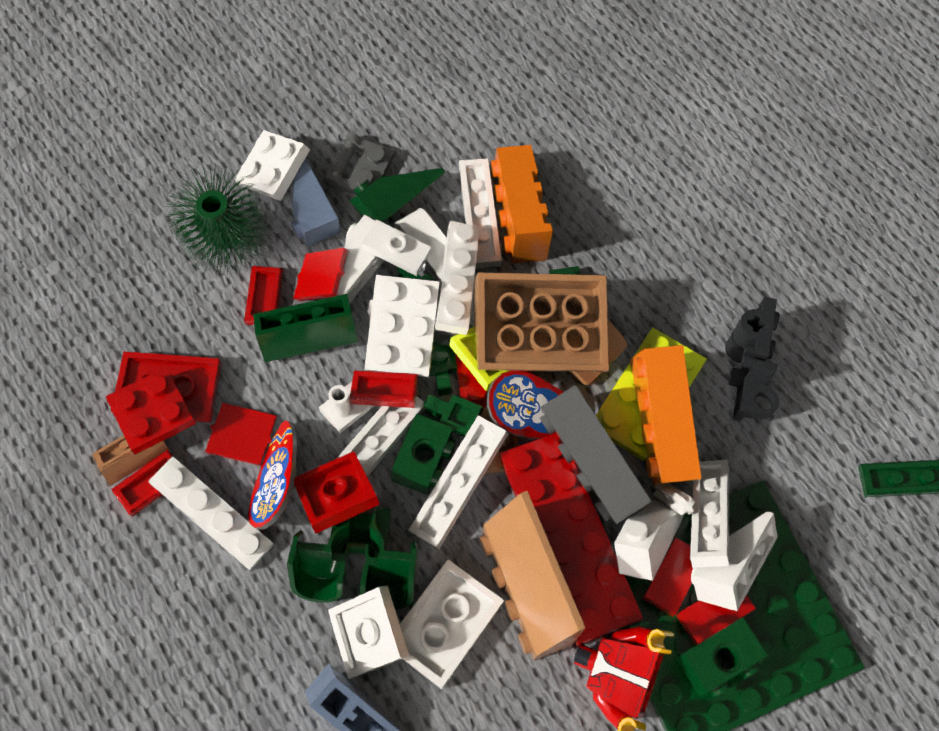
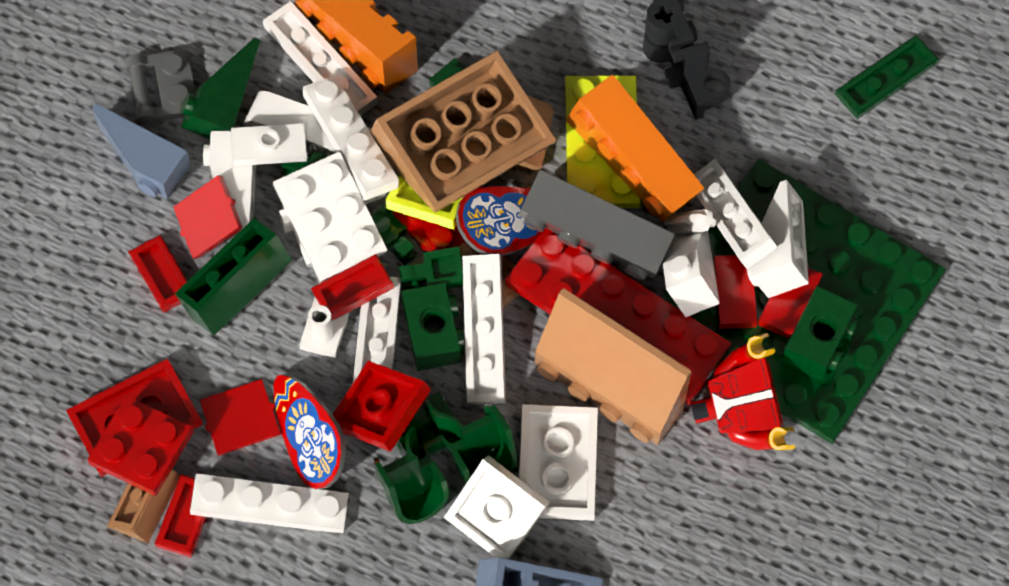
camera: 30 degrees left, 0 degrees up
(218, 219) = (68, 223): dark green piece -> none
(272, 164) = (75, 137): white plate -> none

